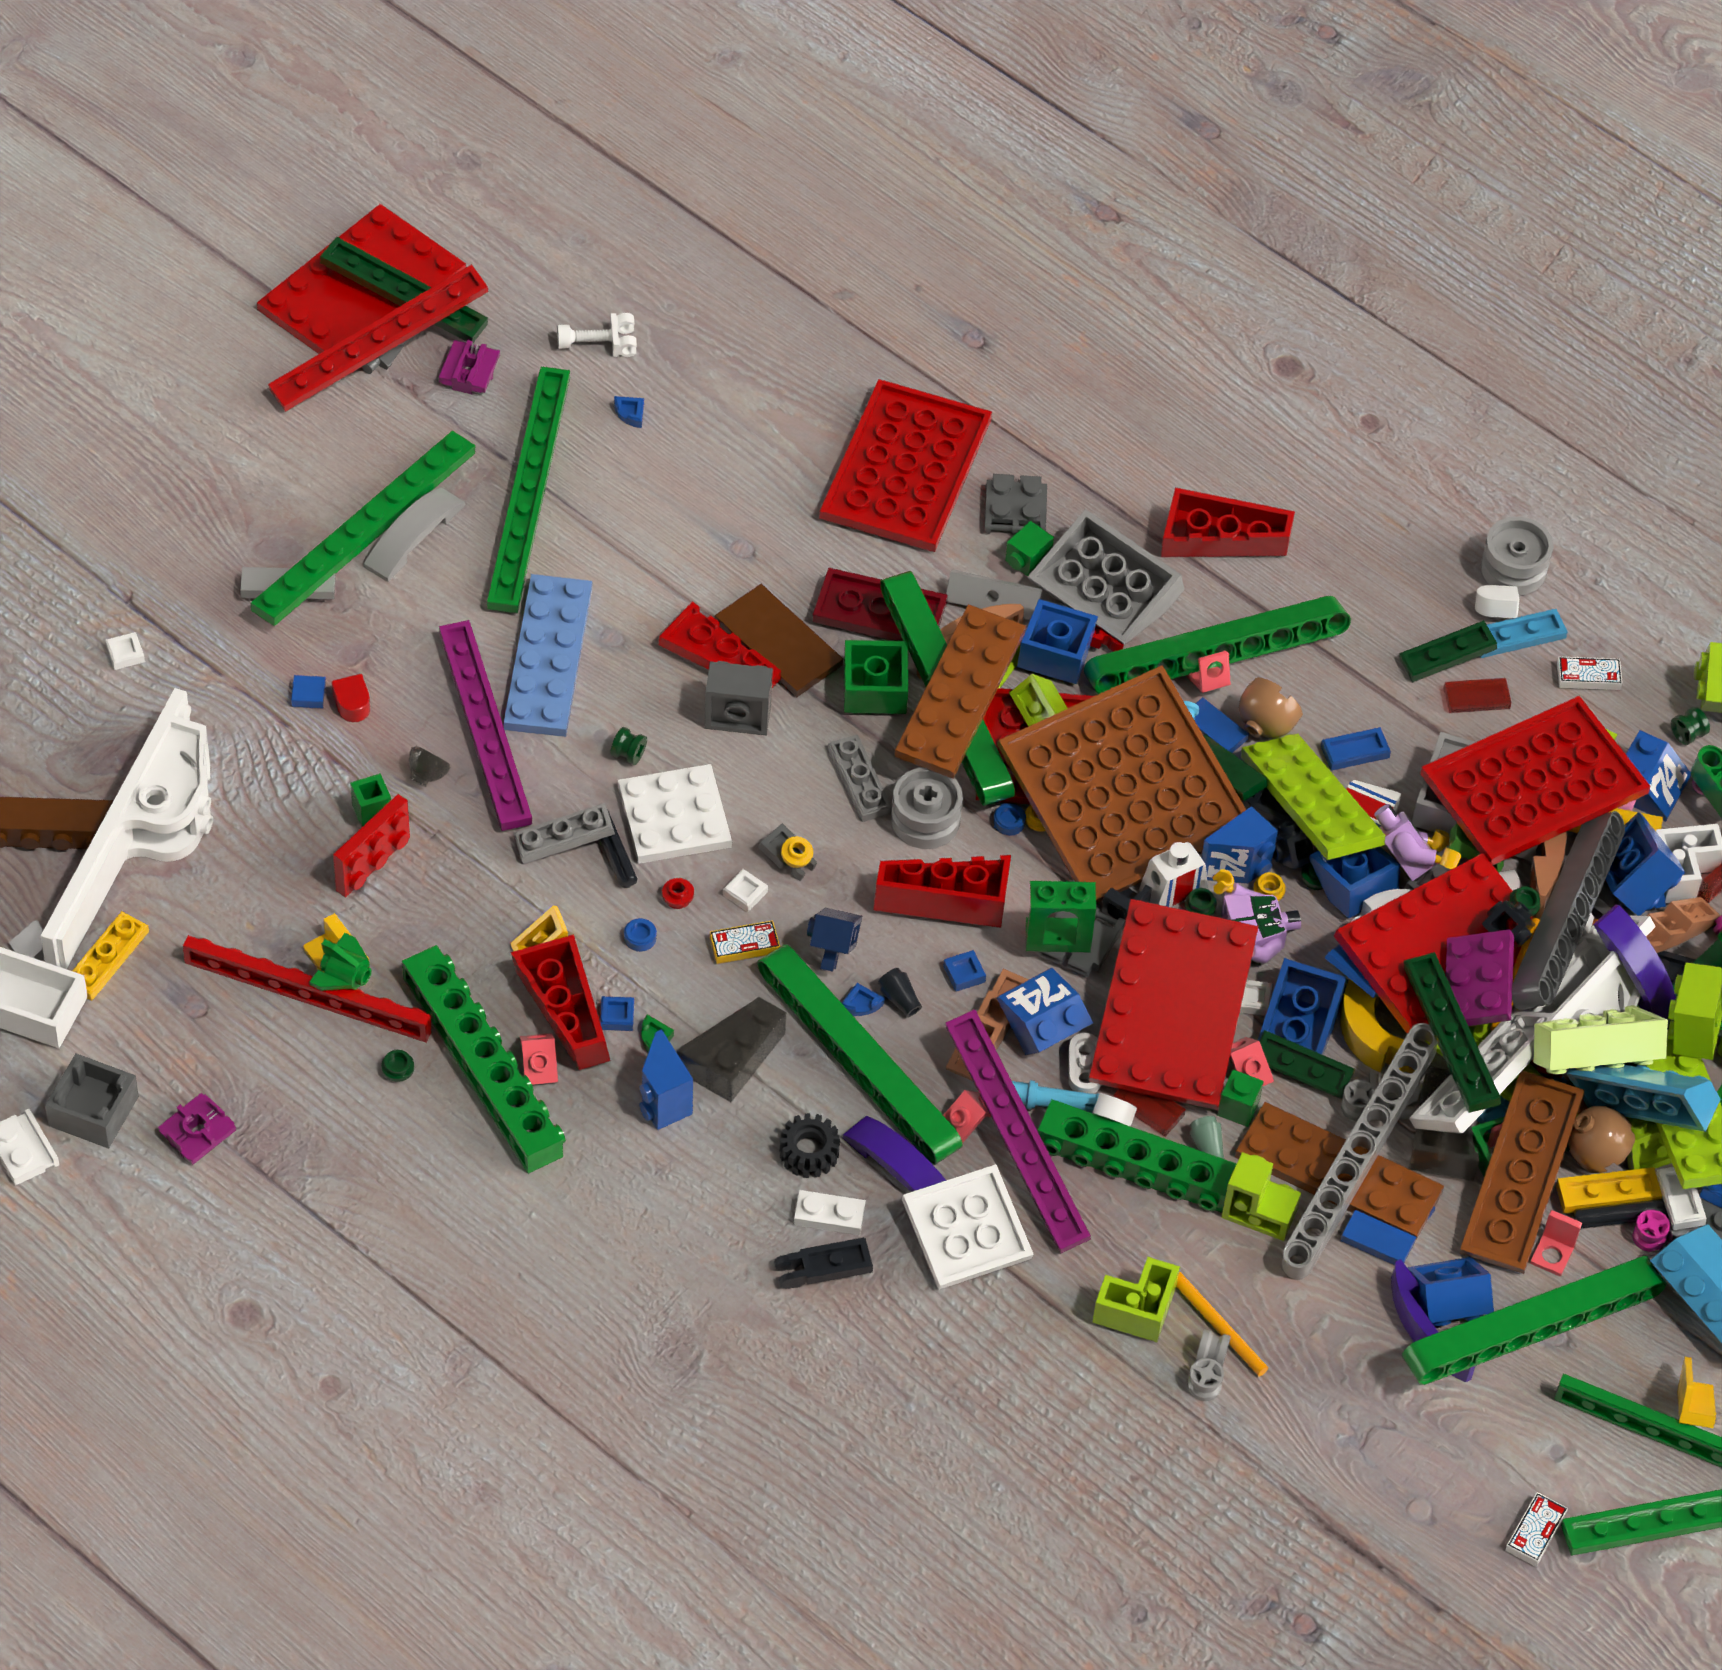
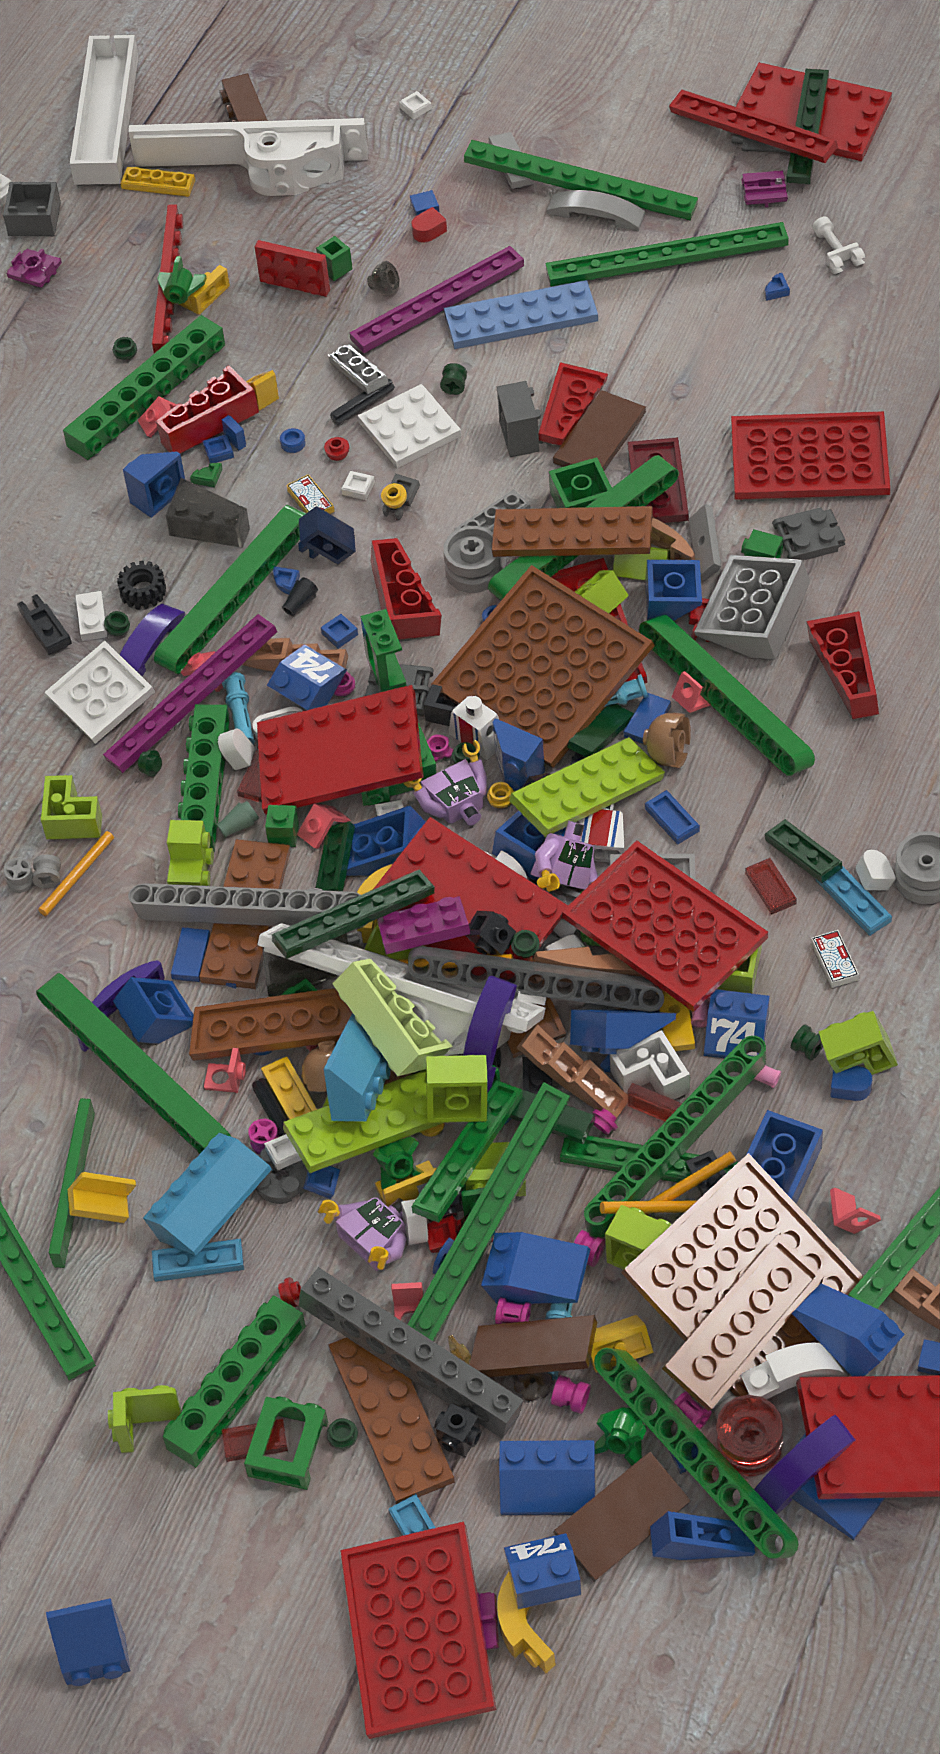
camera: 80 degrees right, 0 degrees up
(608, 985) = (234, 432): none -> blue tile
(860, 1186) = (117, 623): none -> dark green plate
(1092, 1205) = (150, 763): none -> dark green plate

